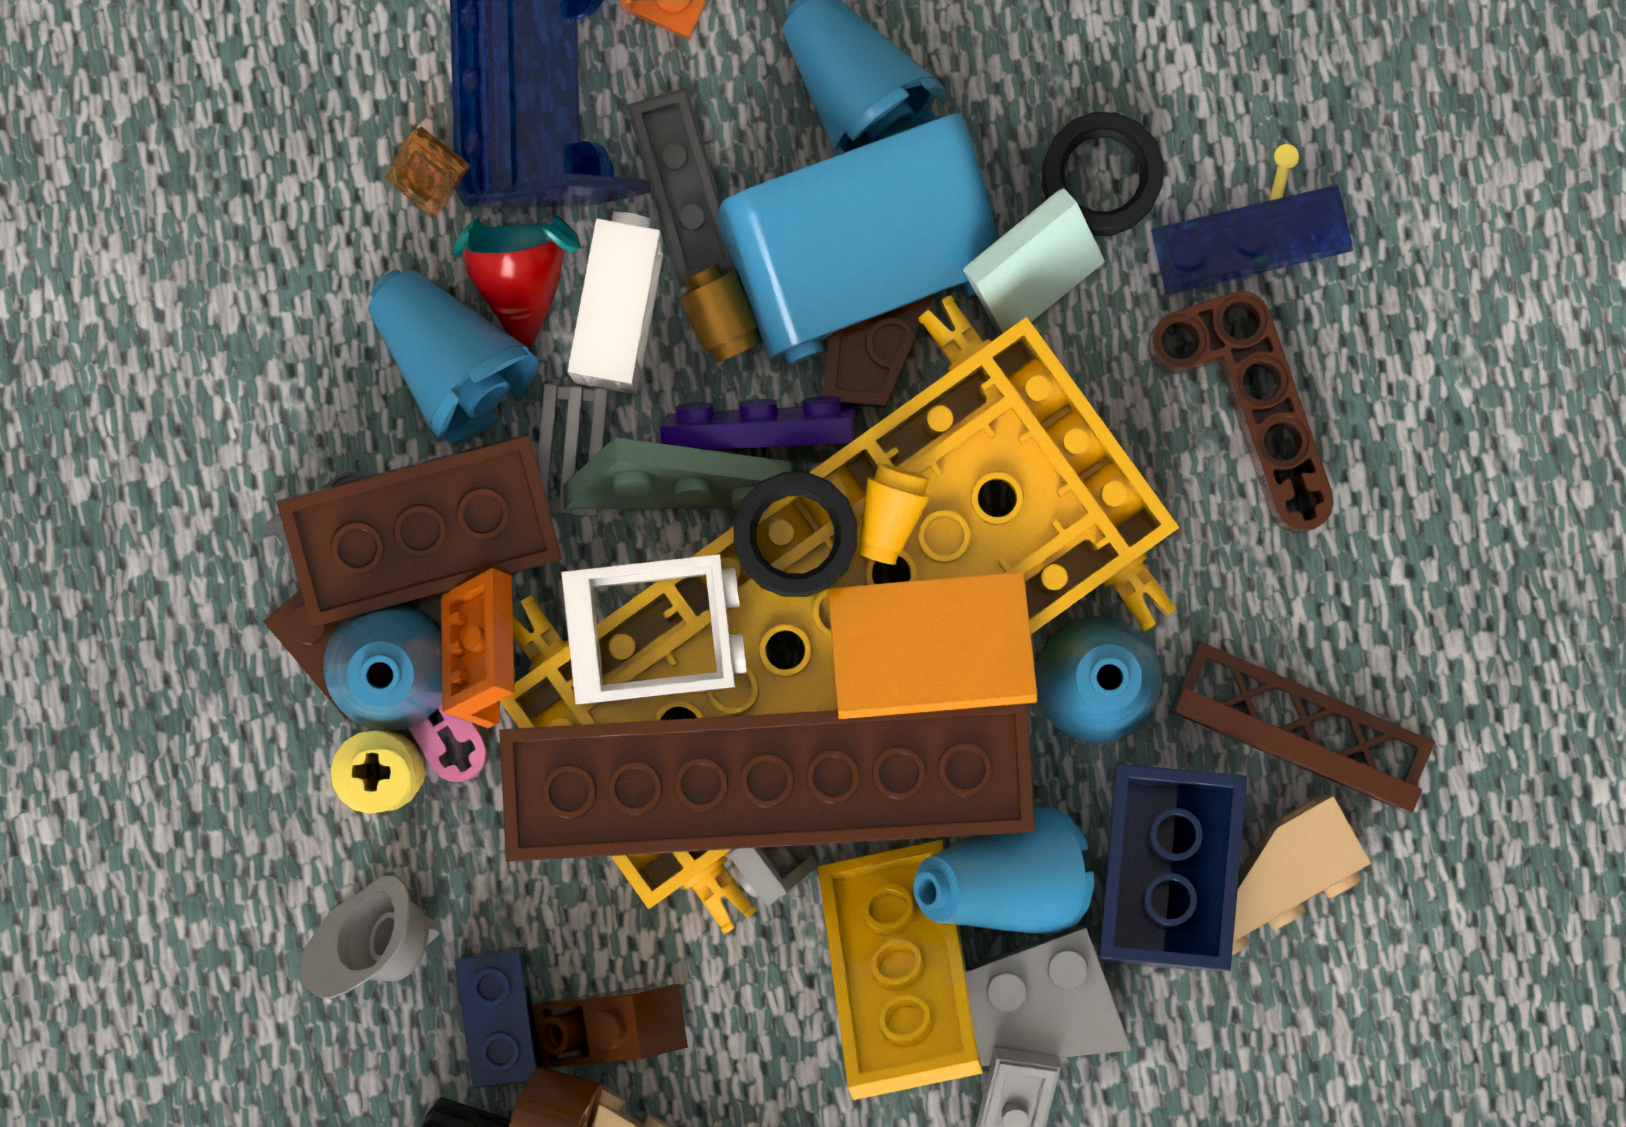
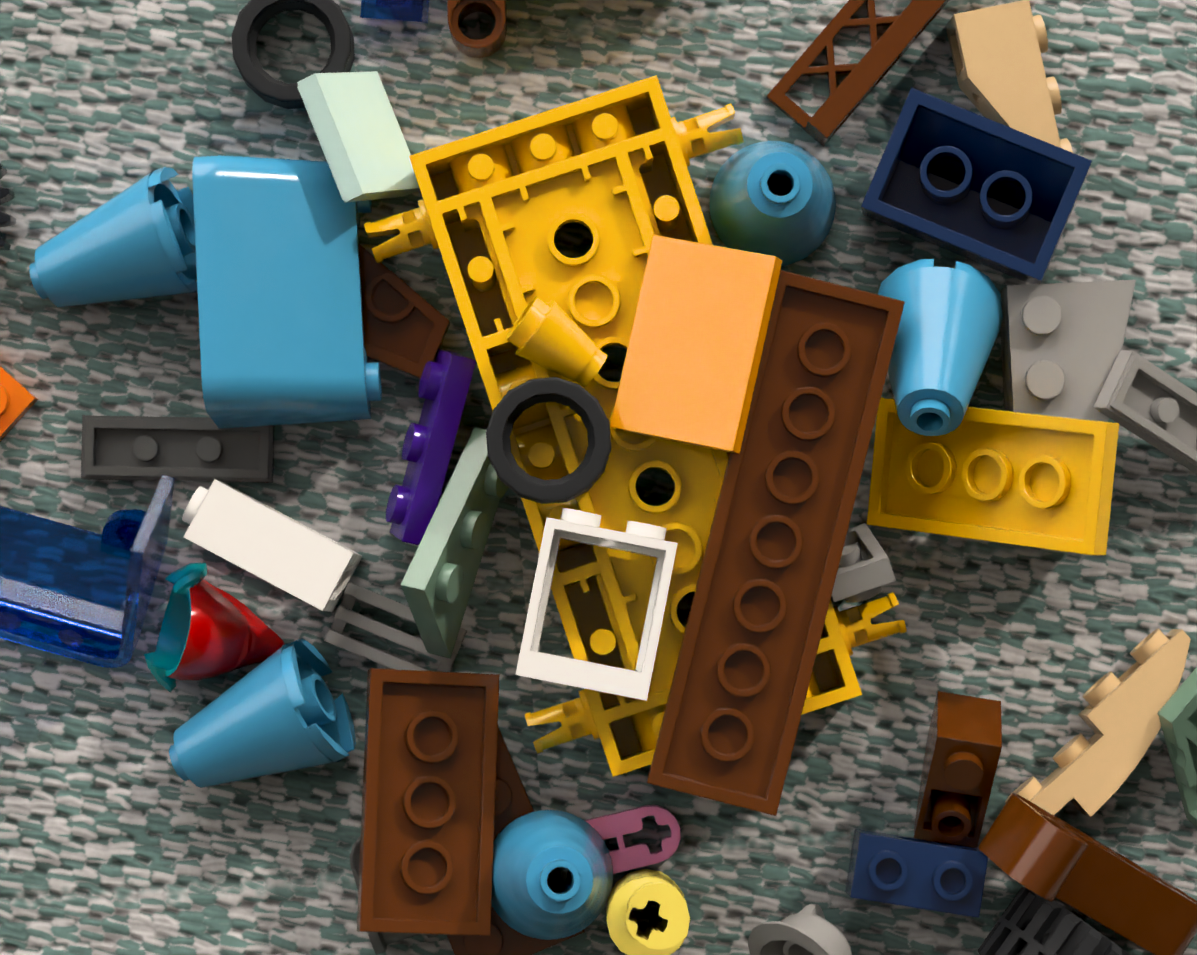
camera: 70 degrees left, 0 degrees up
(427, 171) = (83, 689): clear orange tile -> none
(477, 648) = (559, 780): orange bracket -> none
(720, 312) = (310, 450): pearl gold brick -> none

